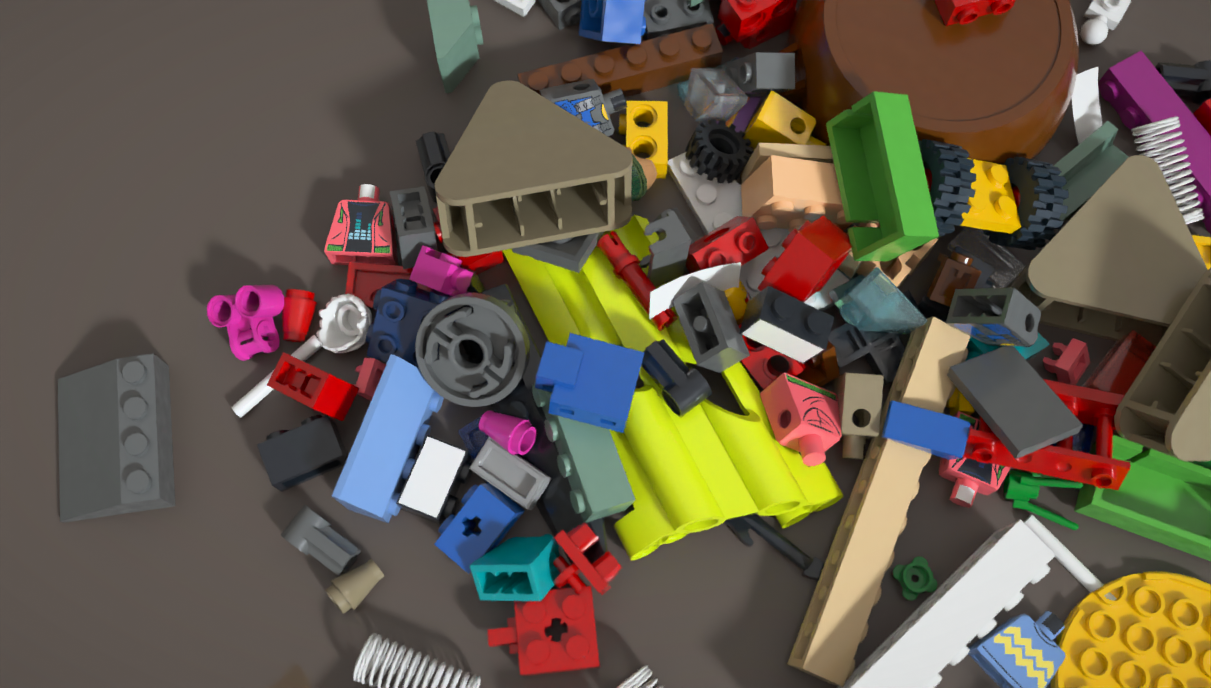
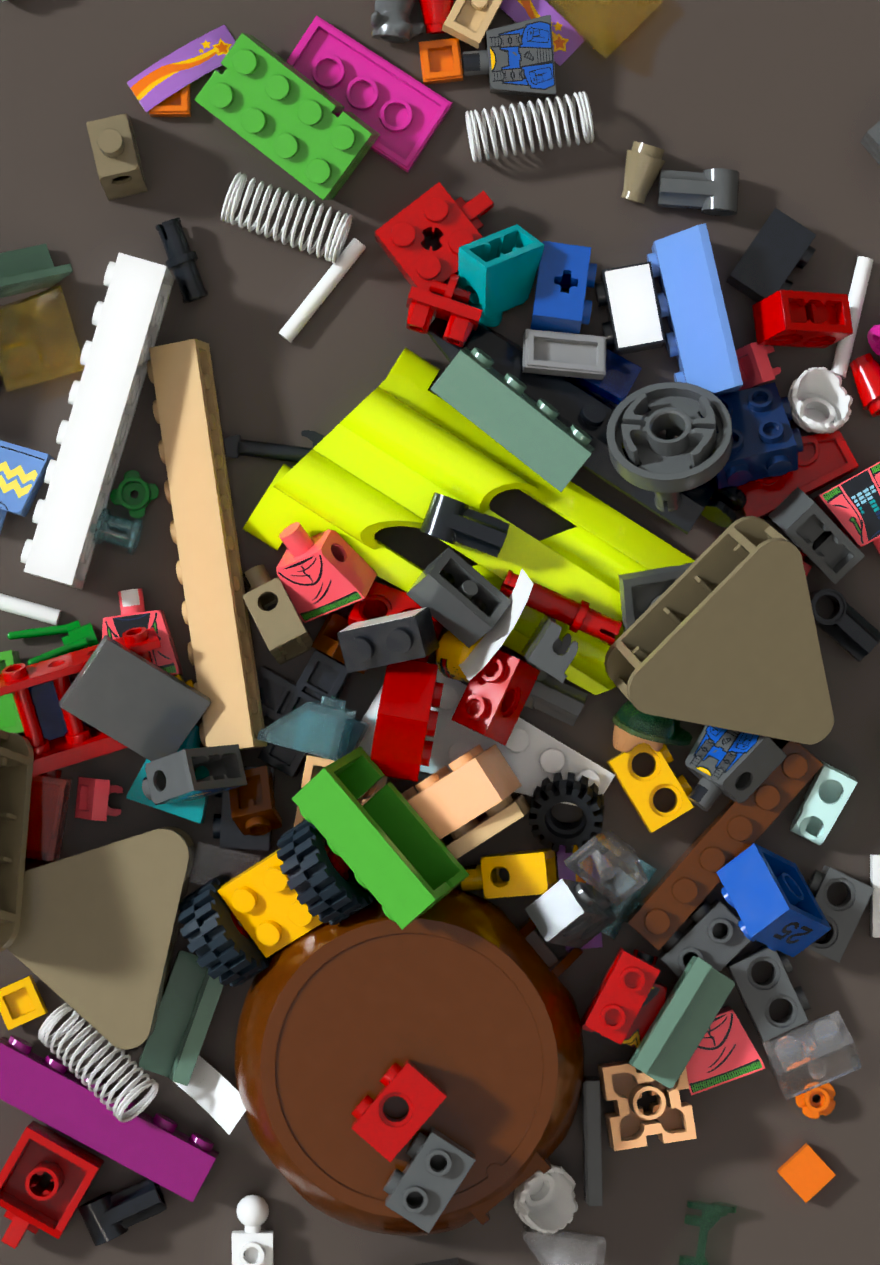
camera: 150 degrees right, 15 degrees up
(441, 272) = (752, 495): dark pink brick -> none
(509, 432) = (588, 387): dark pink cone -> none
(532, 55) = (823, 803): none -> light aqua leg
(590, 380) = (537, 468): blue piece -> none
(668, 651) = (322, 290): none -> white bar
(926, 430) = (201, 625): blue slope -> none
(945, 555) = (108, 521): none -> clear light blue bush

